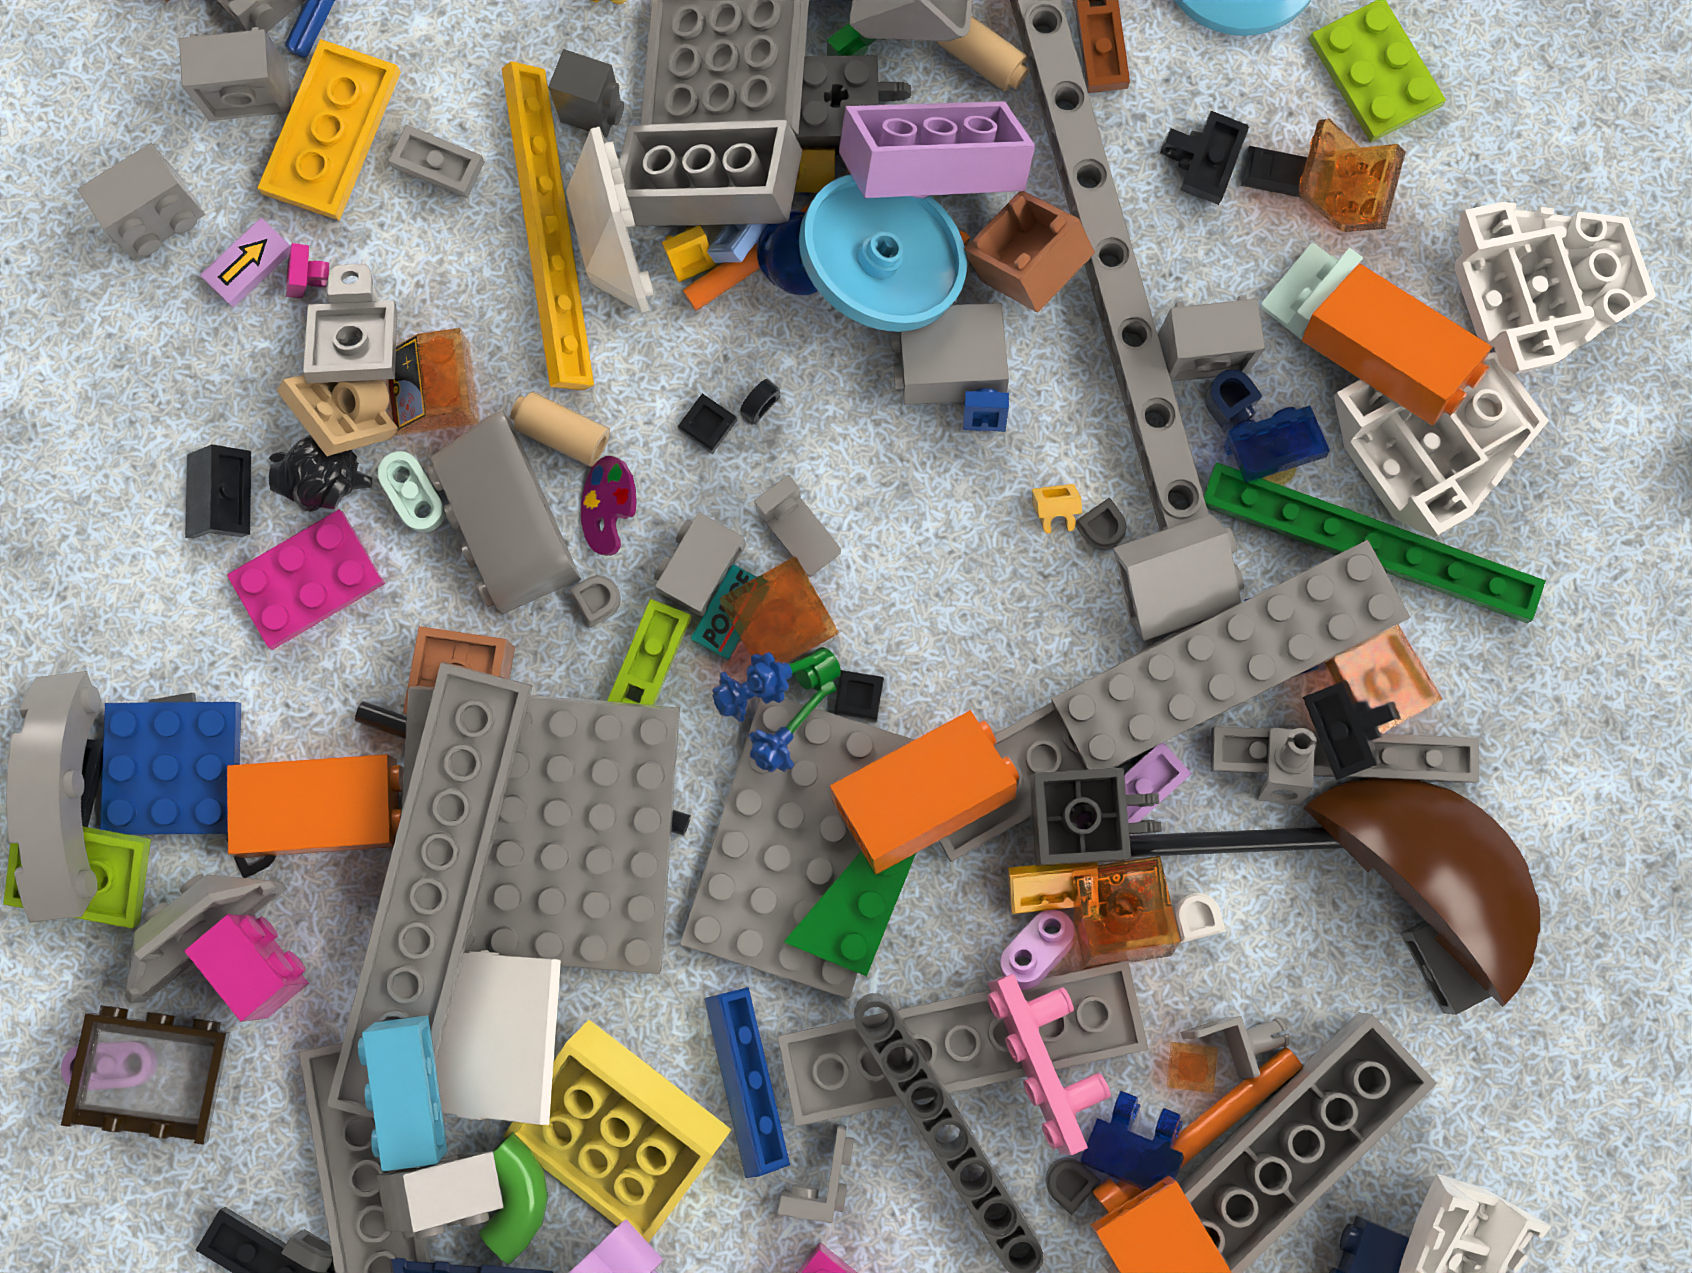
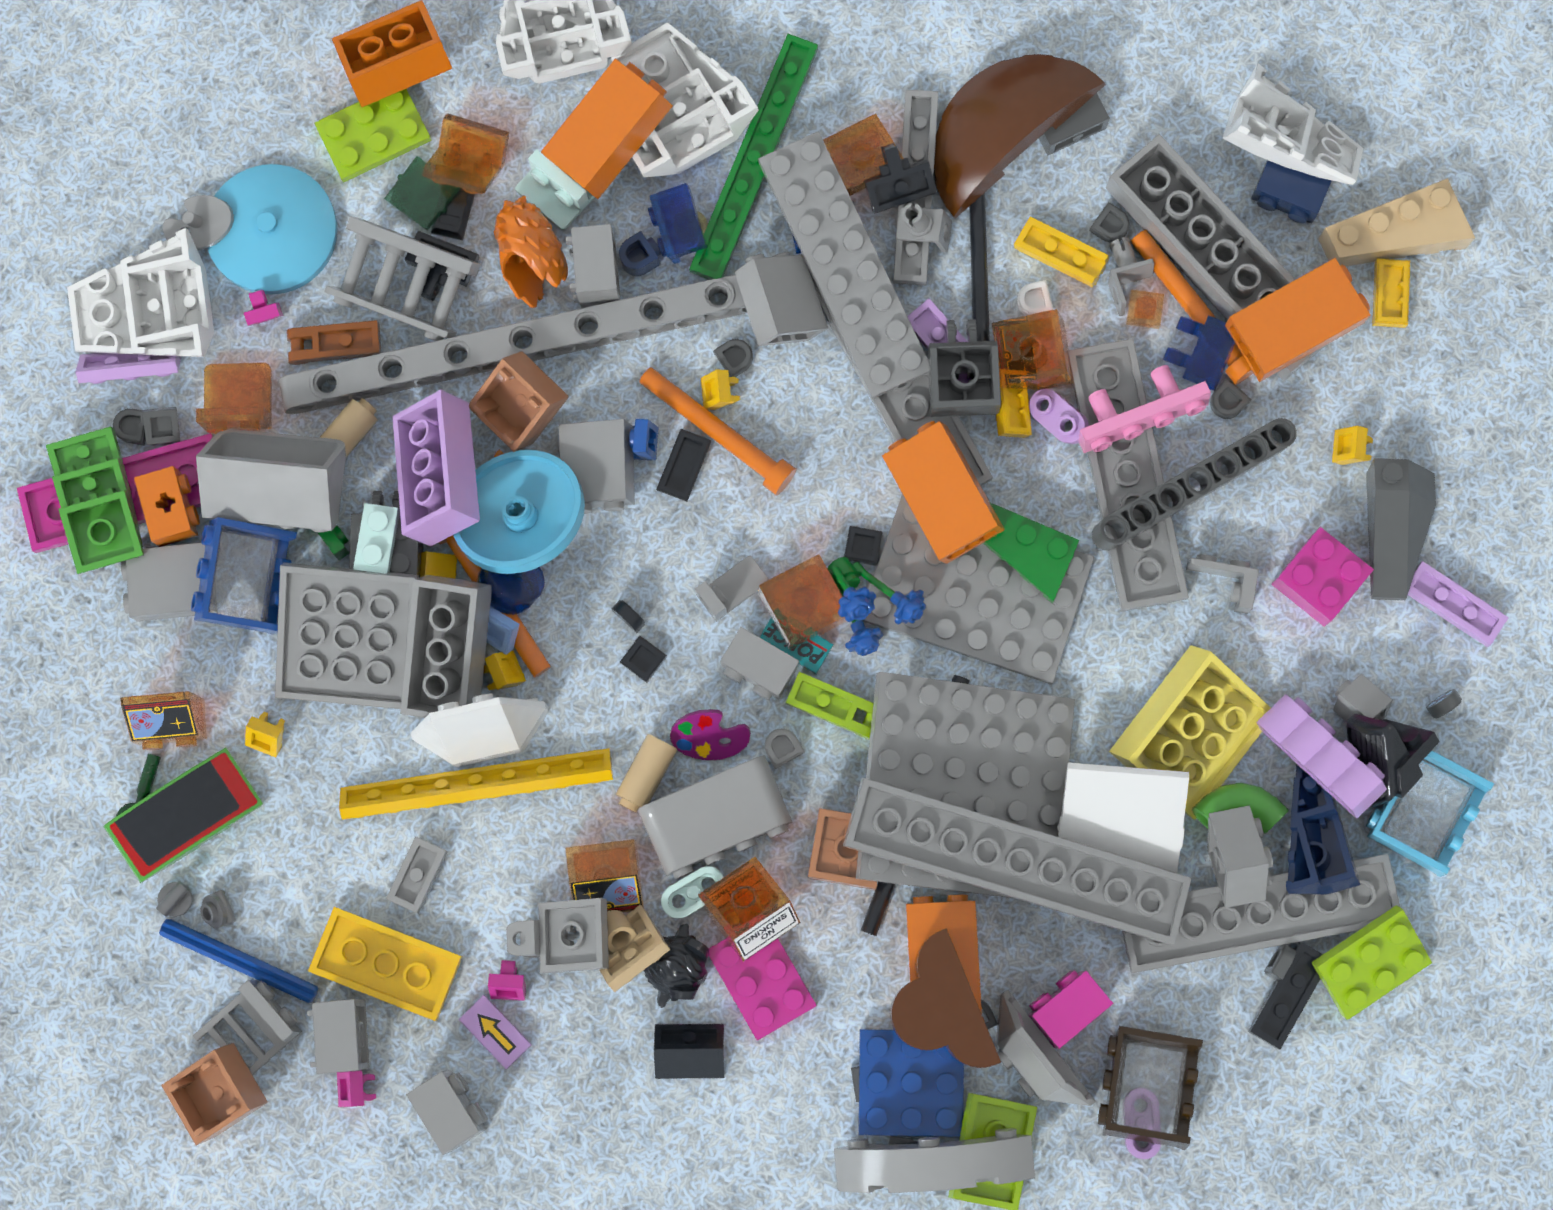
camera: 85 degrees left, 0 degrees up
(176, 98) = (351, 1088): none -> dark pink tile
(233, 795) = (942, 1008): none -> reddish brown brick
(381, 555) = (749, 908): none -> clear orange brick
(403, 1093) = (1166, 881): medium azure brick -> none
(586, 92) = (371, 746): dark grey brick -> none
(747, 1082) = (1155, 634): blue brick -> none
(841, 81) = (376, 538): none -> light aqua plate
(947, 580) = (776, 474): none -> orange piece
(957, 465) = (684, 465): none -> black tile
(1213, 132) = (426, 258): none -> light grey fence
(1228, 256) = (528, 250): none -> orange head
(1265, 952) = (1061, 252): none -> yellow hinge
(1291, 127) = (420, 196): none -> clear green piece
(1308, 1020) = (1110, 224): none -> dark grey tile
(1480, 78) = (391, 53): none -> orange brick

